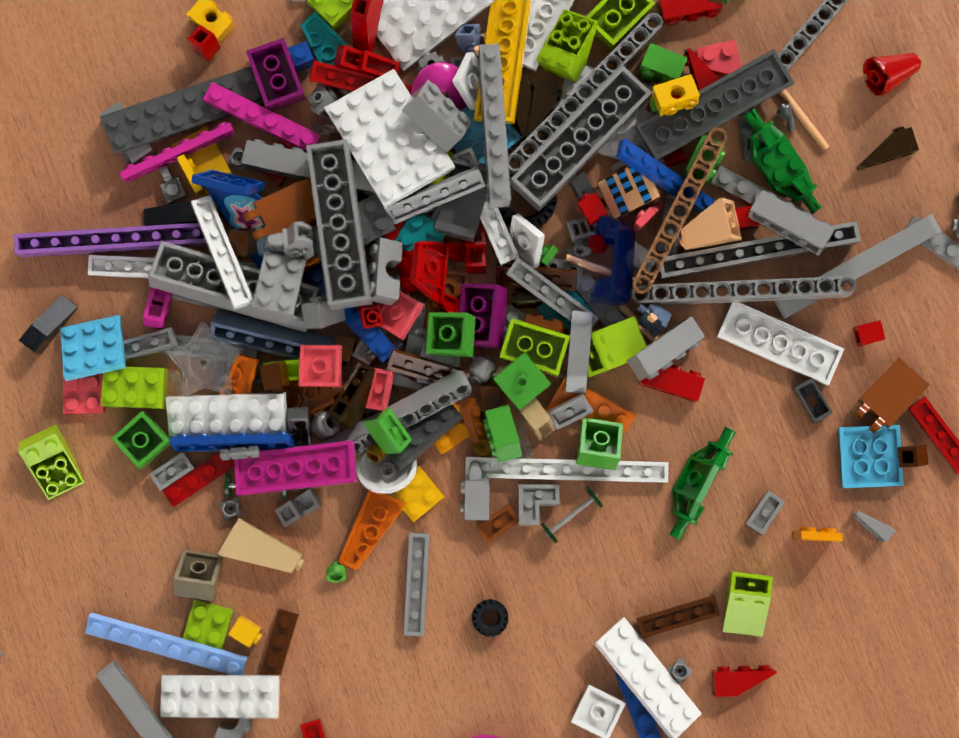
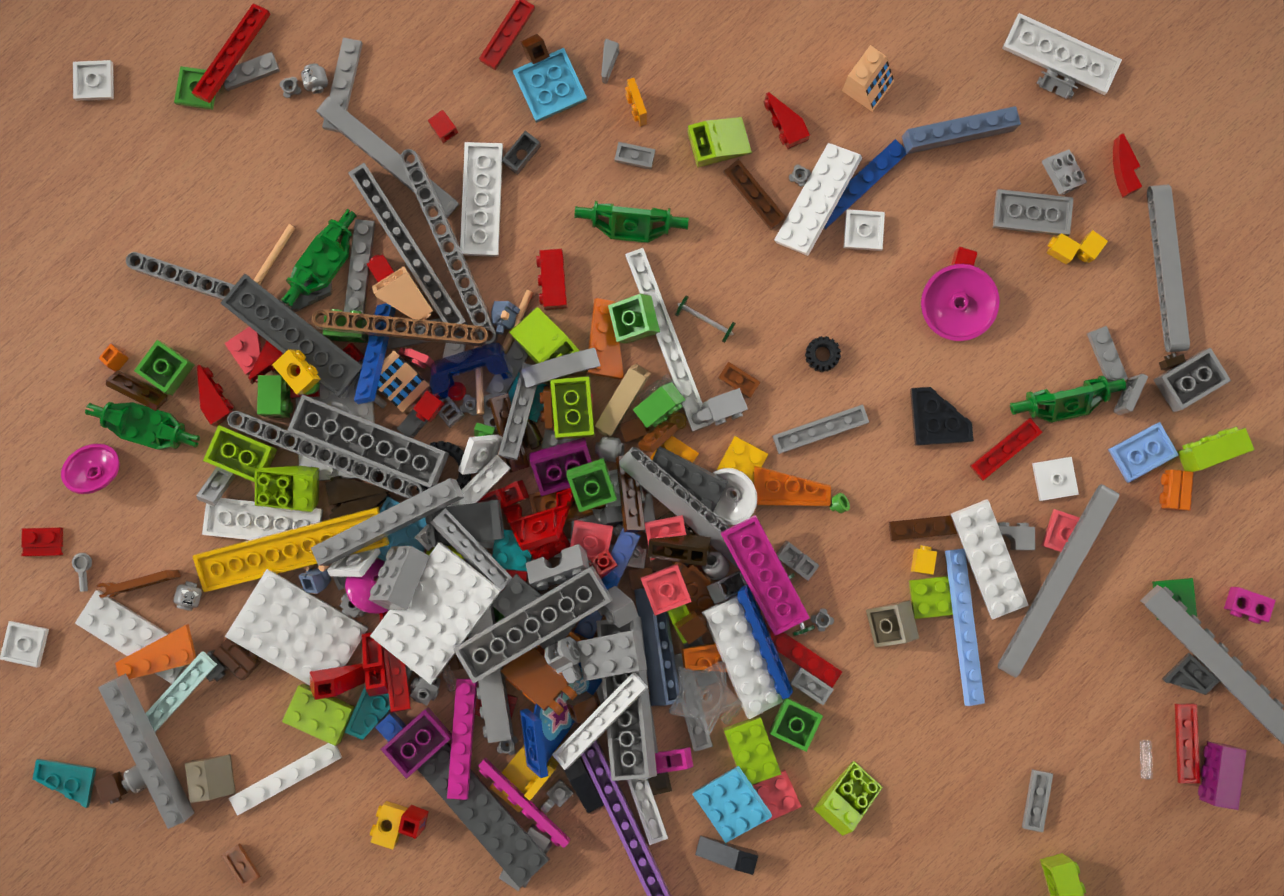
camera: 110 degrees left, 0 degrees up
(140, 288) = (660, 783): none -> dark brown plate
(150, 343) = (707, 753): light grey tile -> none
(239, 452) = (771, 630): light grey axle -> none
(260, 548) = (846, 578): tan slope -> none
(375, 453) = (722, 509): pearl gold plate -> none
(378, 705) = (937, 420): none -> black plate
(388, 432) = (700, 504): bright green panel -> none
(522, 381) = (607, 405): bright green plate -> none
(531, 498) = (705, 359): light grey plate -> none
(570, 411) = (615, 355): light grey plate -> none
(666, 348) = (527, 293): light grey brick -> none
(785, 112) = (273, 273): dark grey plate -> none
(790, 222) = (372, 227): light grey brick -> none
(889, 71) = (201, 196): red cone -> none
(891, 395) = (489, 87): dark orange tile -> none
(897, 145) = (268, 168): dark brown slope -> none

